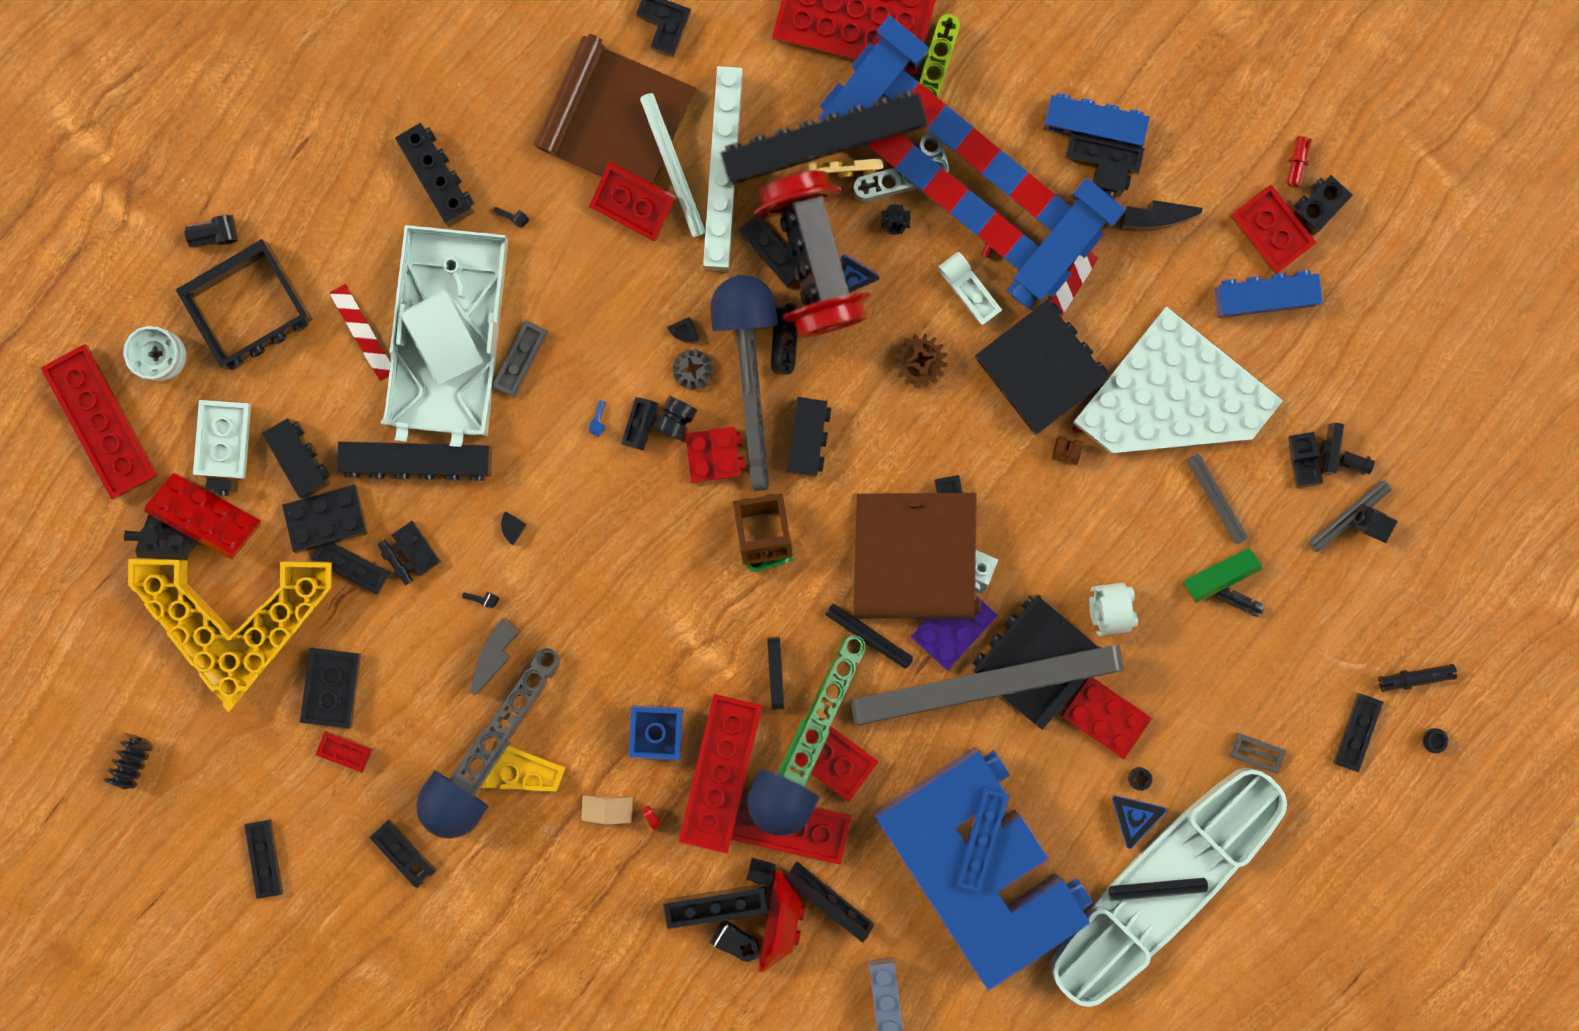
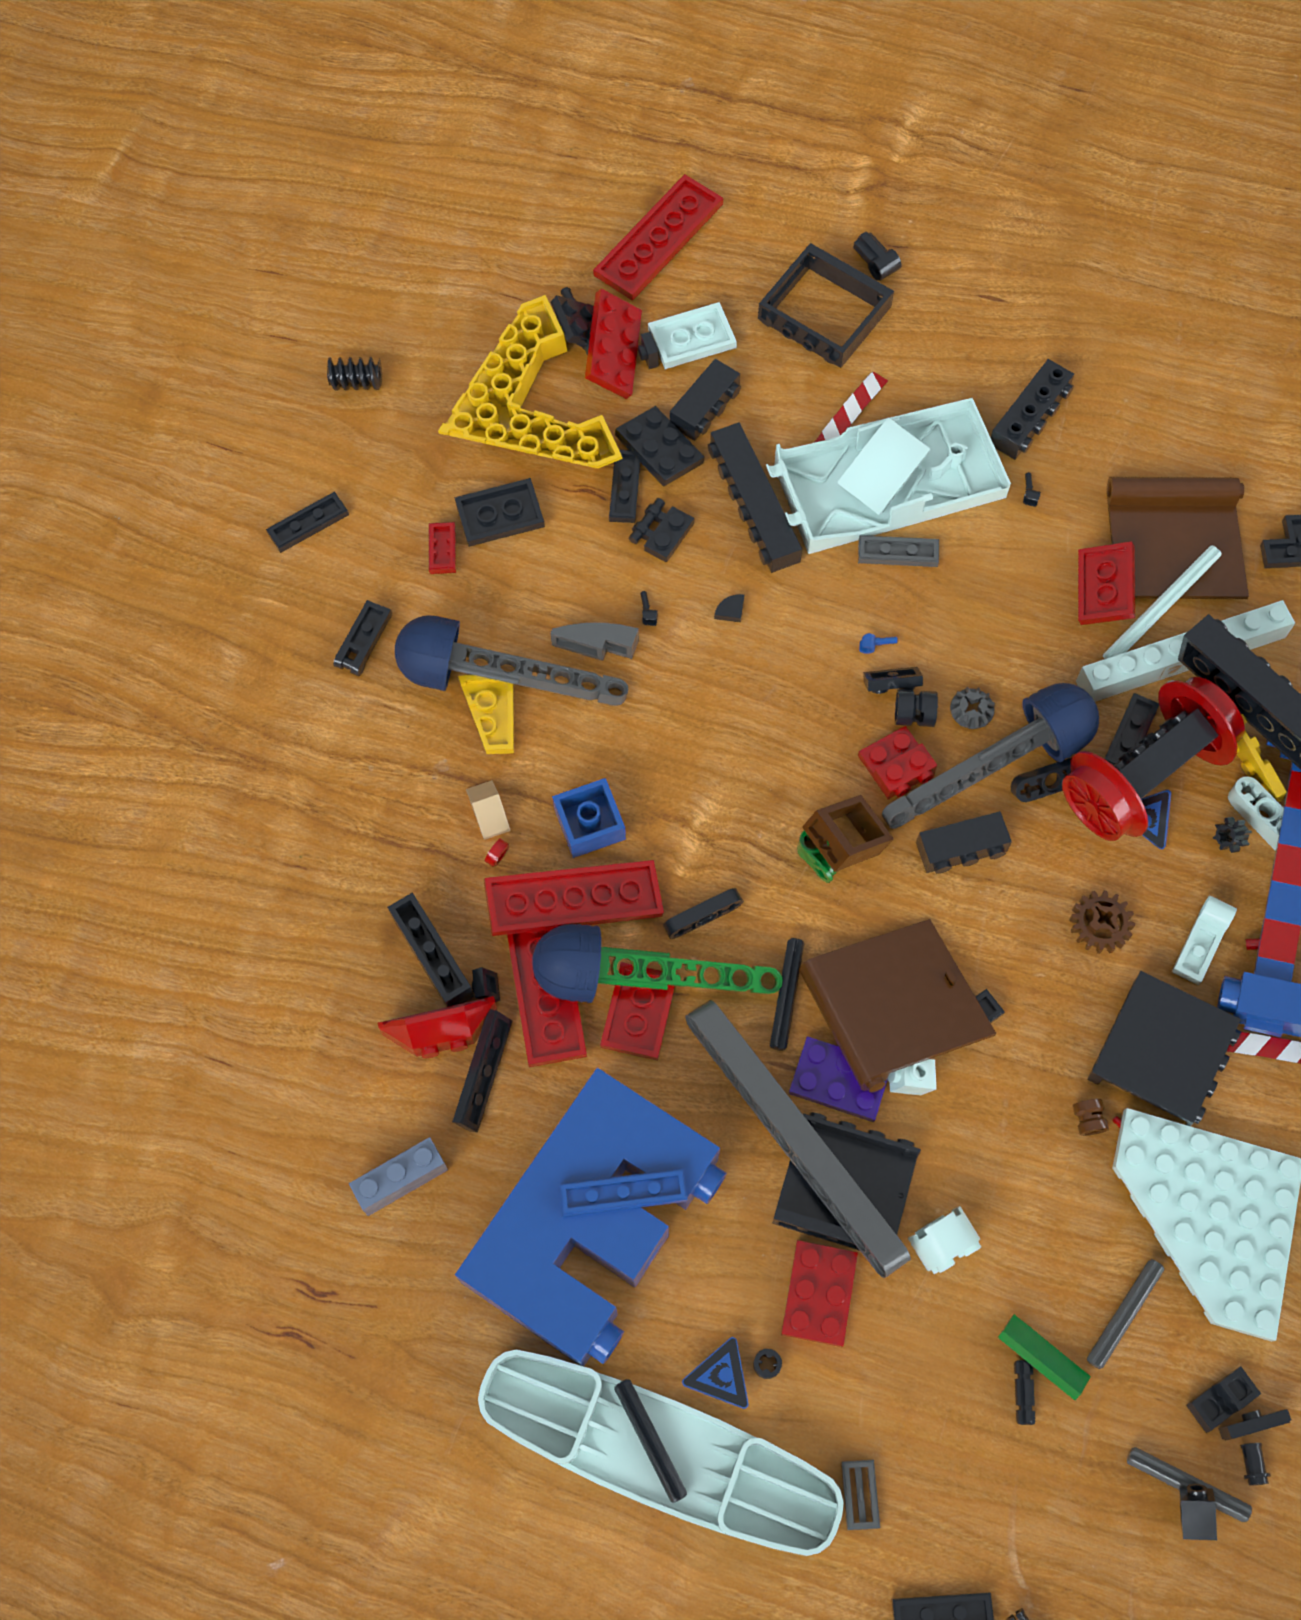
camera: 70 degrees right, 20 degrees down
(148, 341) = (743, 249): light aqua wheel -> none
(684, 331) = (1005, 685): black tile -> none
(730, 938) = (400, 986): black piece -> none

